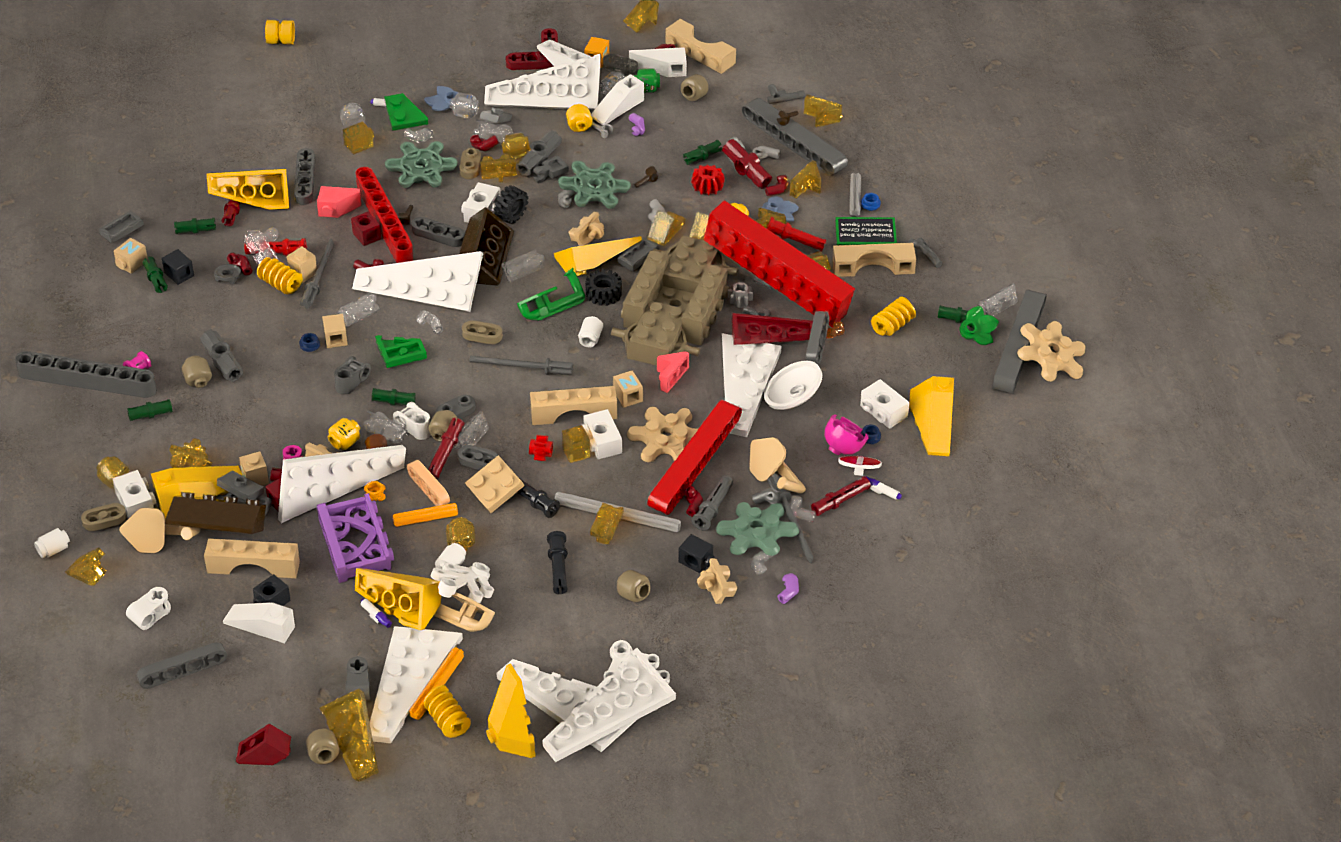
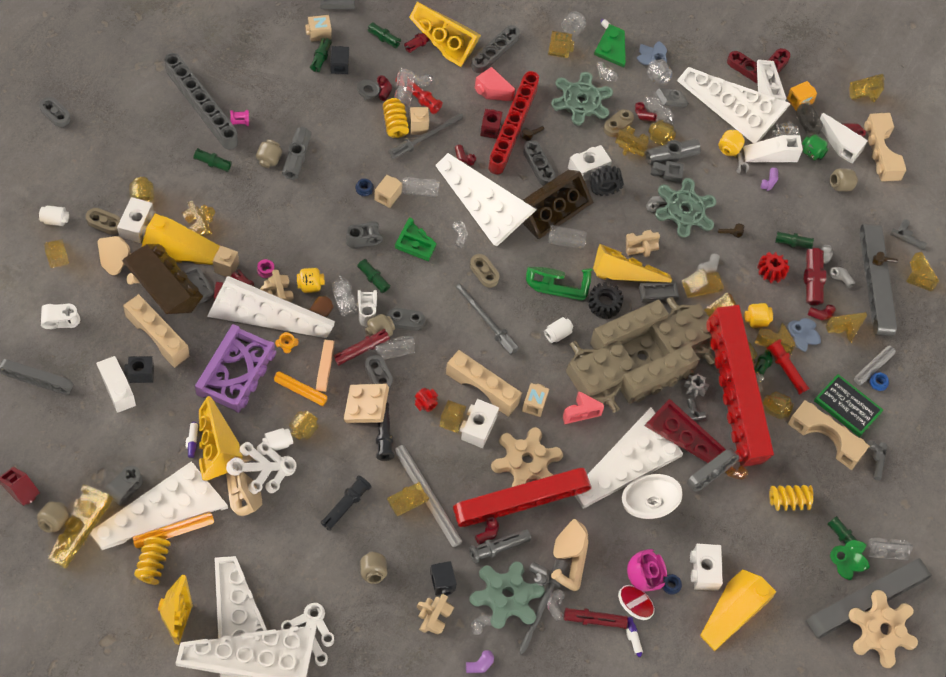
camera: 35 degrees right, 15 degrees up
(240, 486) = (203, 268): dark grey plate -> none

